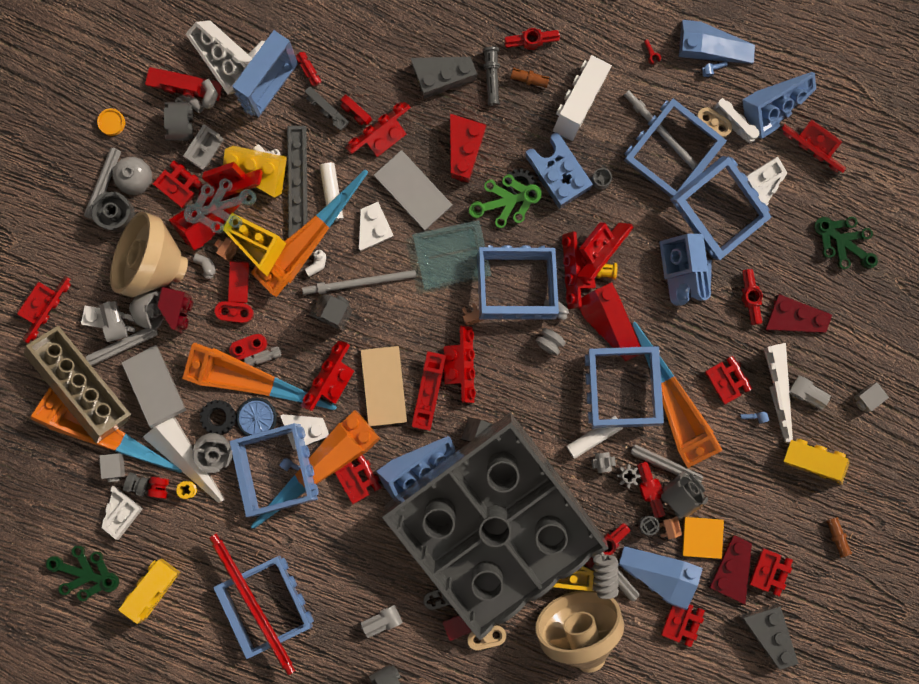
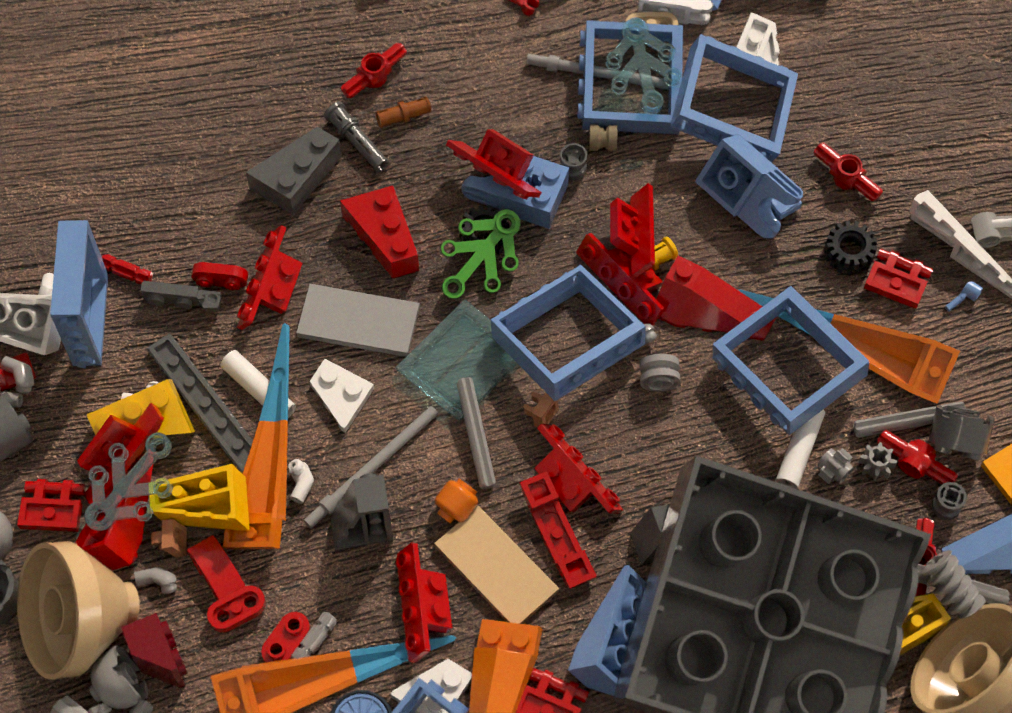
camera: 30 degrees left, 20 degrees down
(203, 147) = (55, 440): light grey hinge -> none
(388, 335) = (456, 501): none -> orange head
(427, 304) = (476, 433): none -> light grey axle
(554, 155) = (500, 159): none -> red bracket
(581, 97) = (480, 88): white wedge -> none
(629, 175) = (602, 138): none -> dark tan wheel
(672, 528) = (978, 484): nougat tile -> none
(684, 148) = (643, 62): none -> clear light blue plant
(727, 343) = (854, 234): none -> black tyre
(796, 316) = (913, 161): dark red wing -> none
(843, 241) = (897, 53): dark green plant -> none

